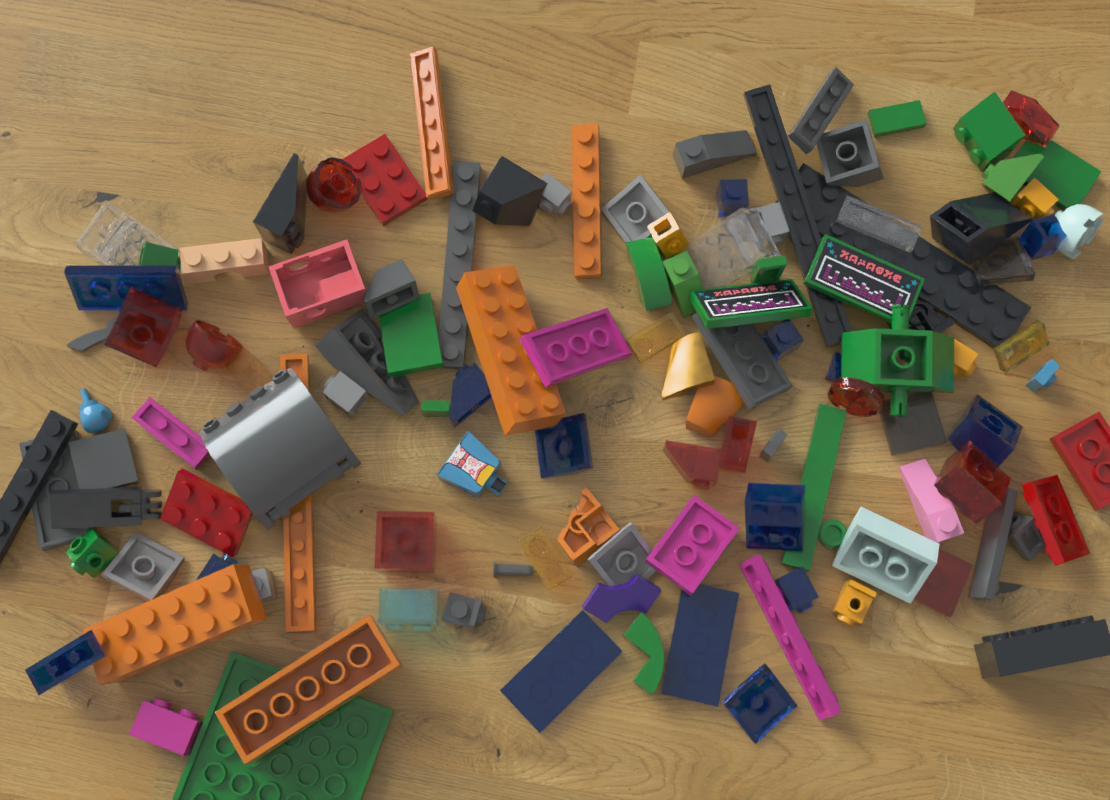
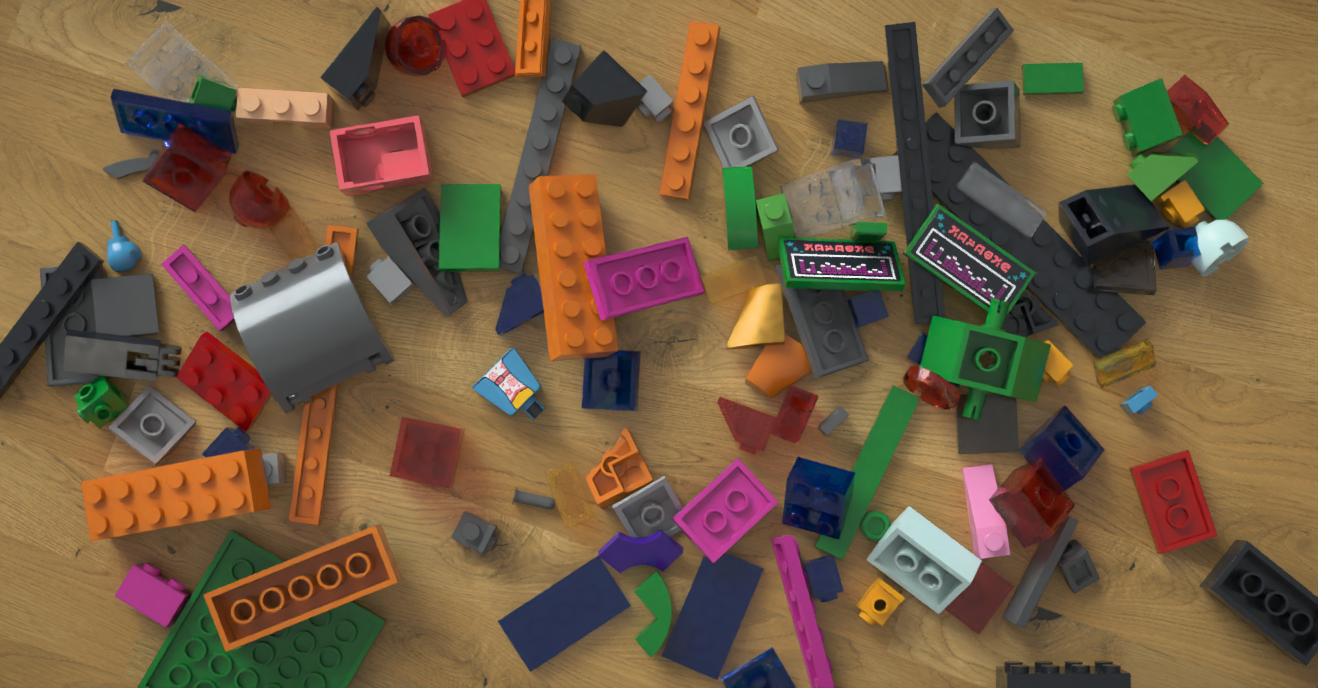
camera: 10 degrees right, 10 degrees up
(65, 663) = (59, 513): clear blue slope -> none
(390, 289) = (457, 174): dark grey slope -> none
(408, 608) = (418, 520): clear light blue brick -> none
(435, 408) = (483, 314): green tile -> none
(671, 242) = (773, 178): light orange brick -> none
(1055, 520) = (1111, 557): red plate -> none

